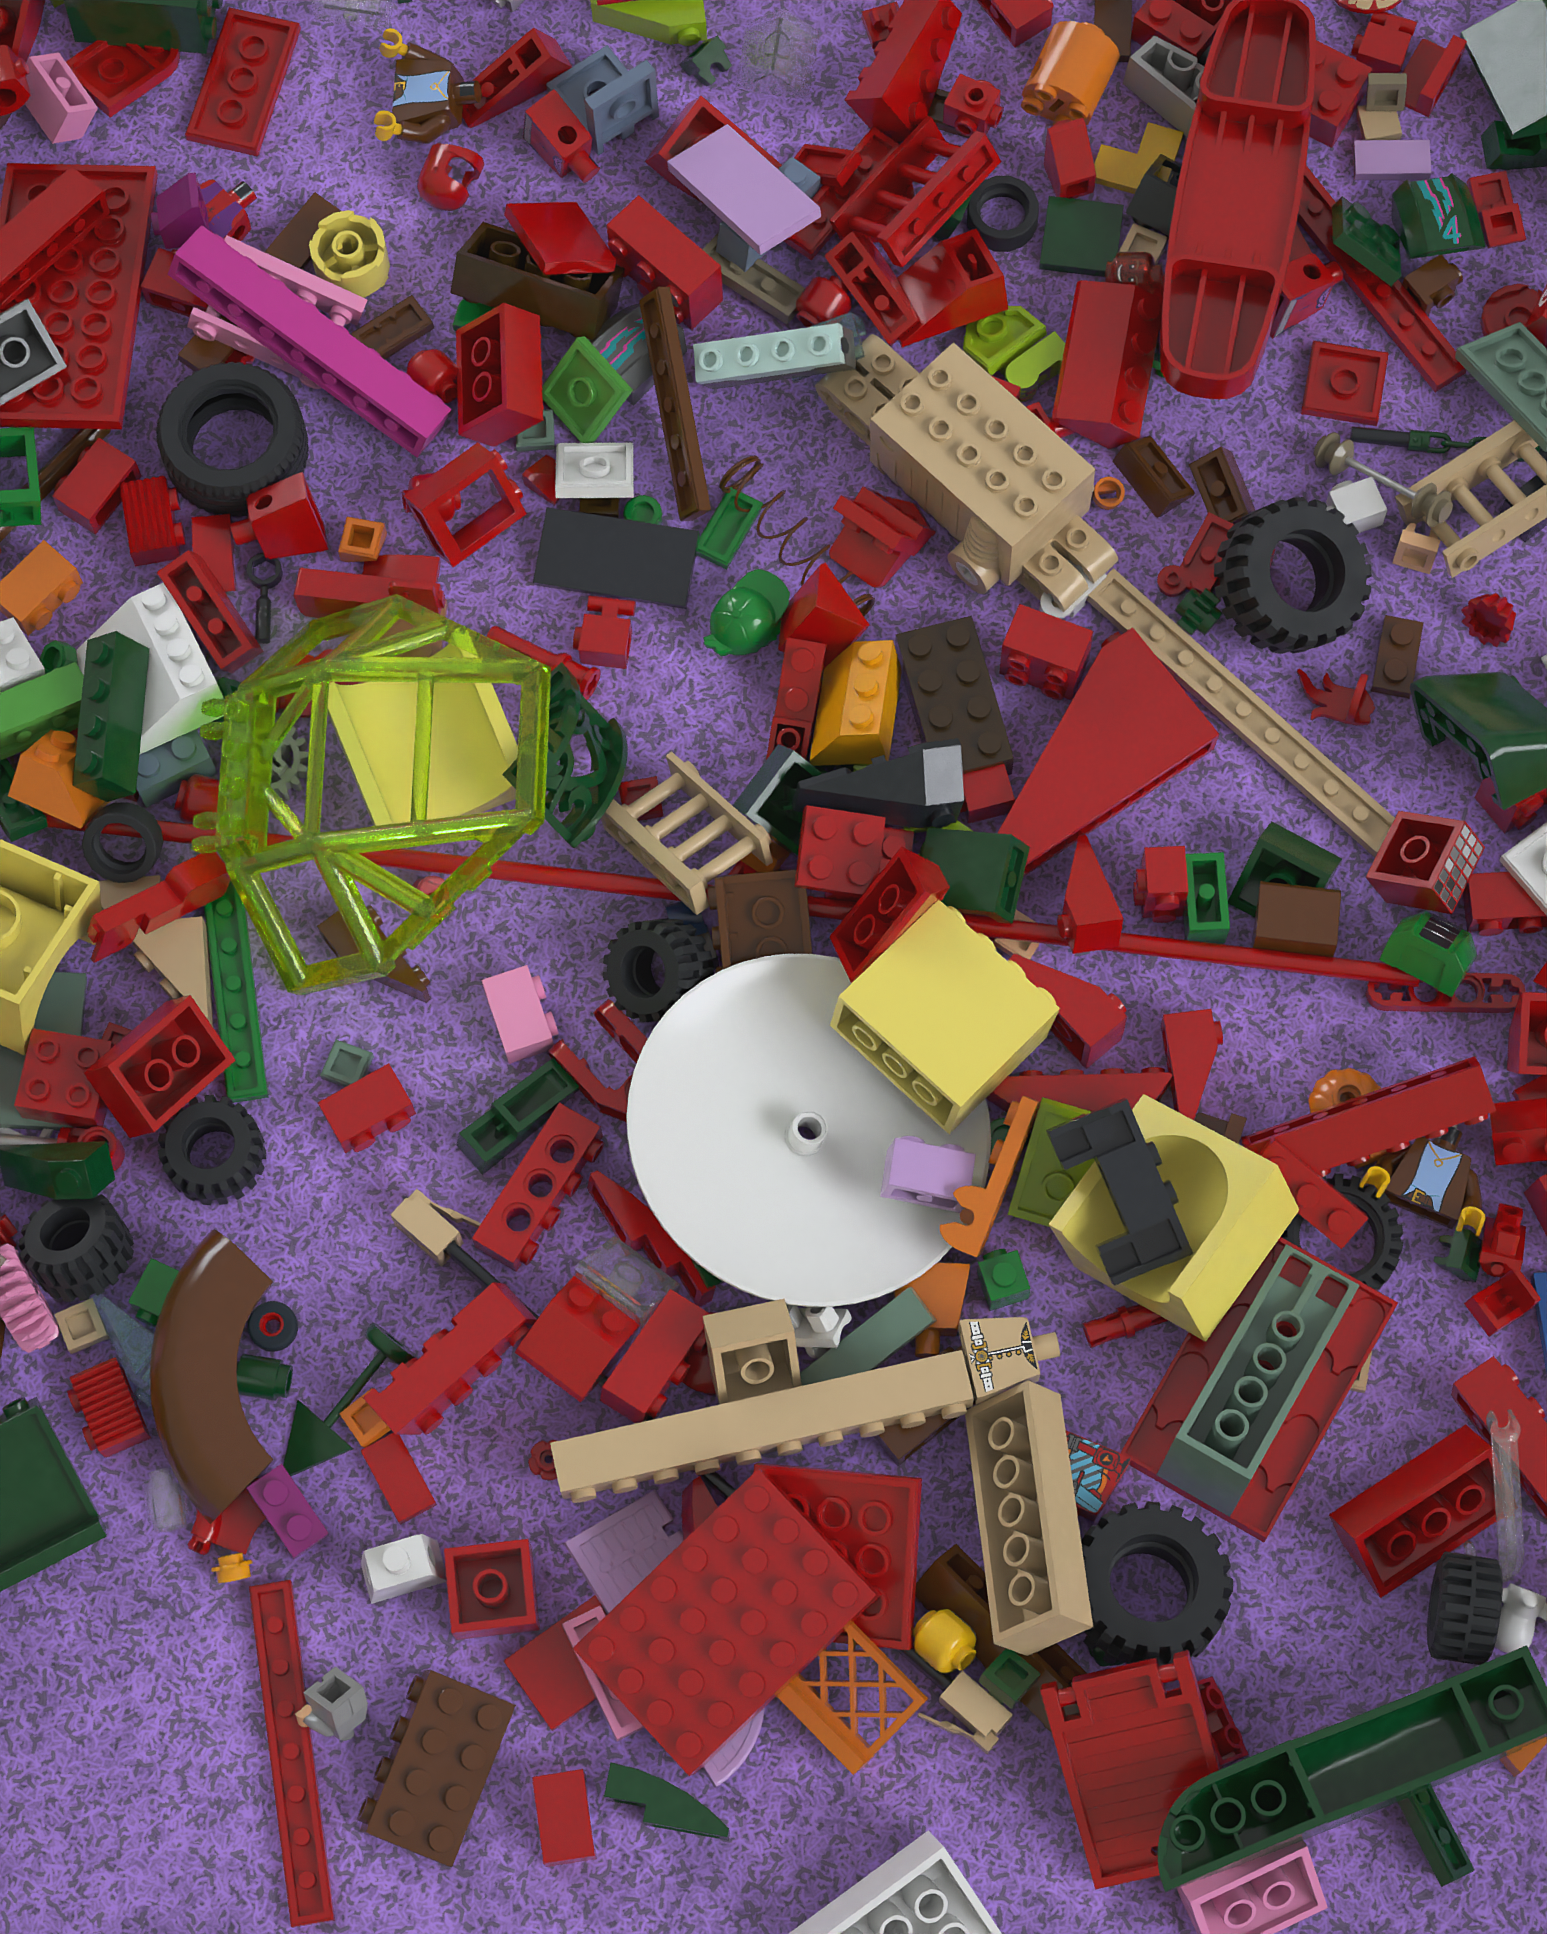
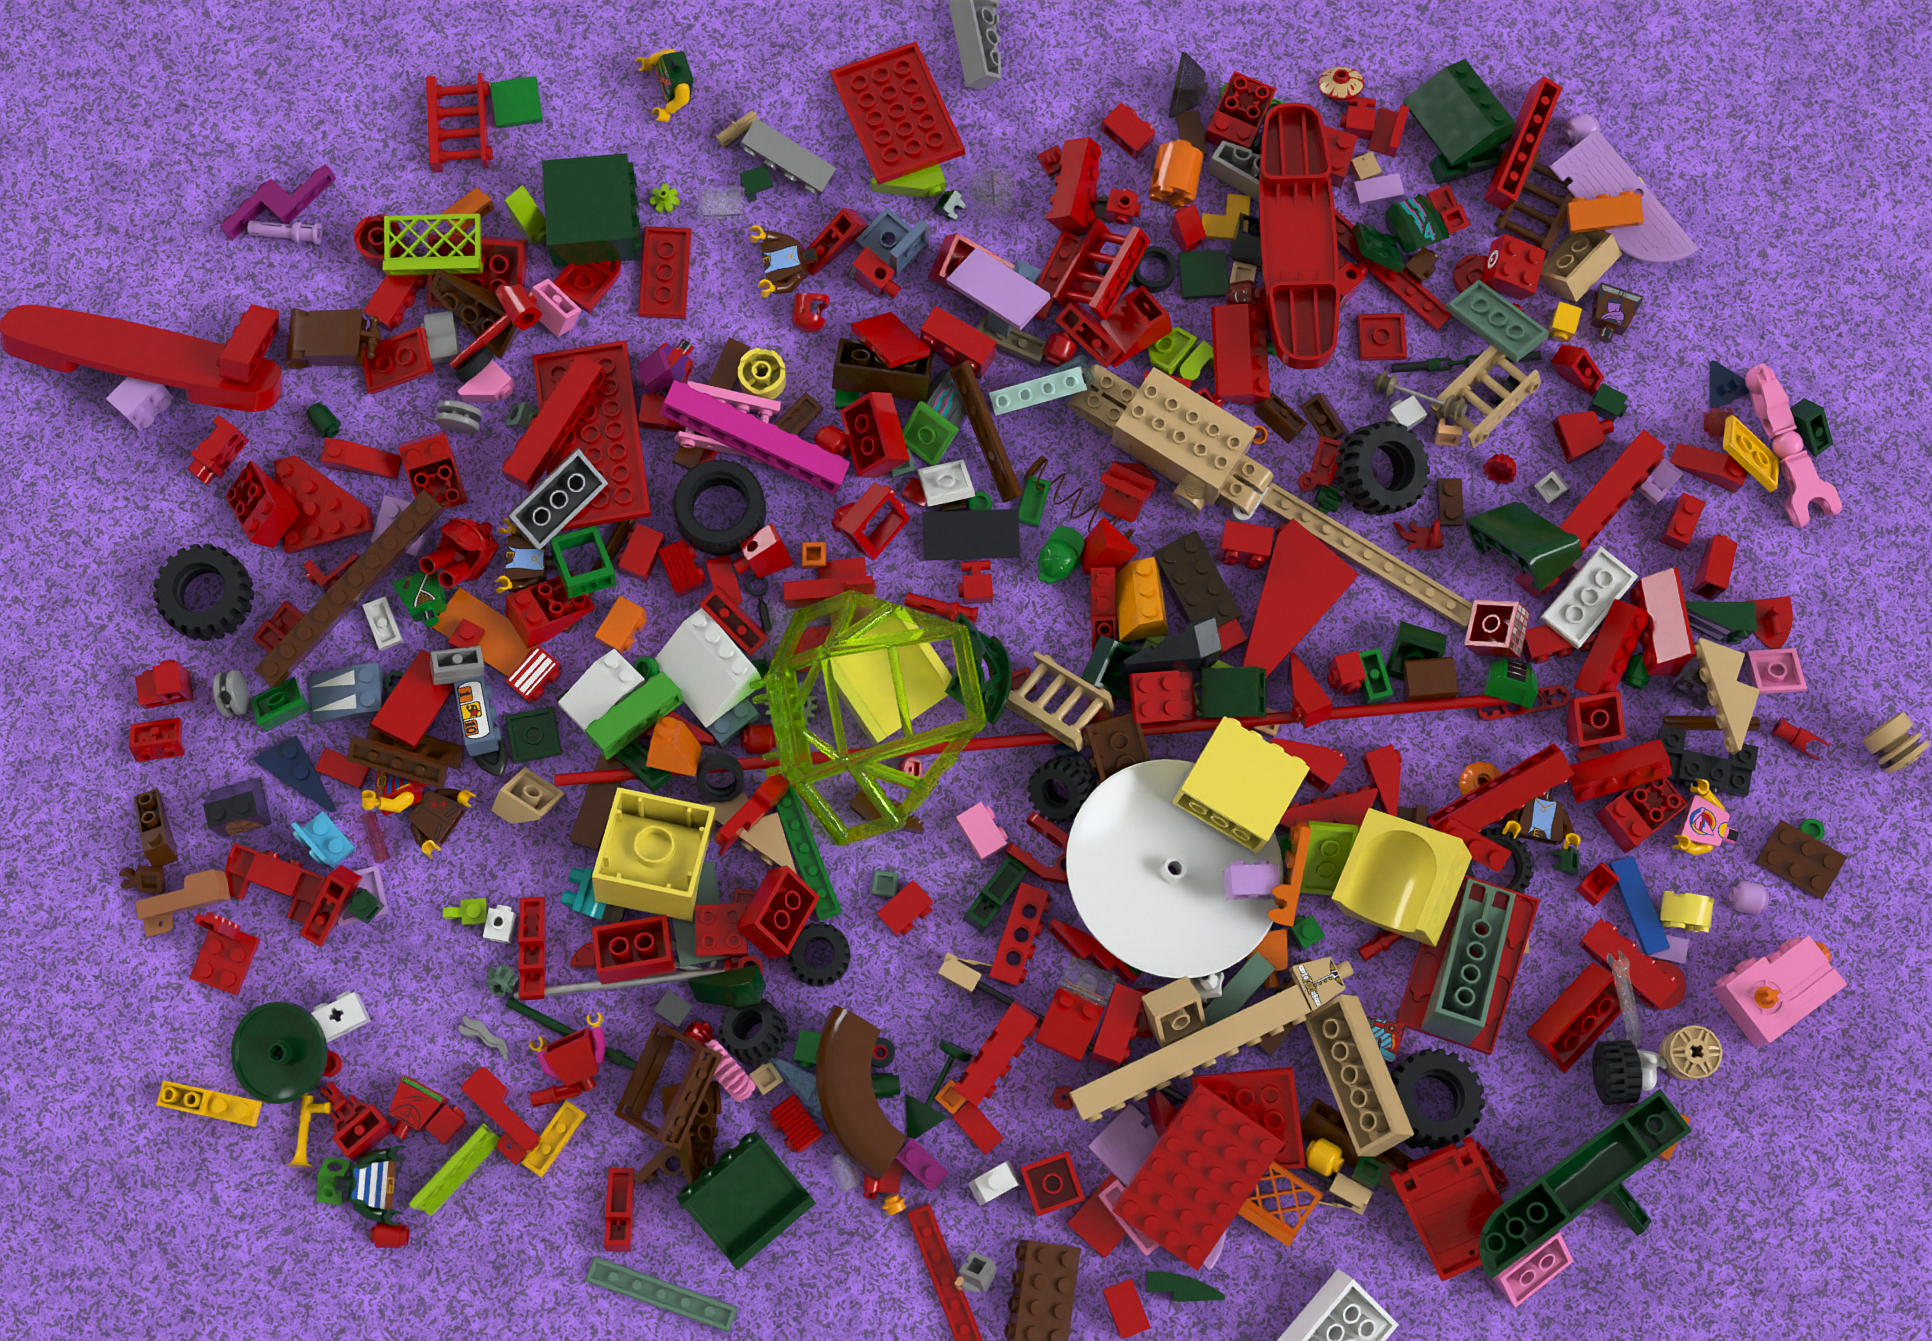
camera: 20 degrees left, 5 degrees up
(111, 716) = (695, 702): dark green brick -> none
(829, 163) = (1044, 259): red tile -> none
(887, 910) = (1193, 729): red slope -> none
(1135, 1186) = (1374, 859): black bracket -> none
(1386, 91) = (1368, 148): dark tan plate -> none
(1503, 1241) = (1591, 848): red hips -> none

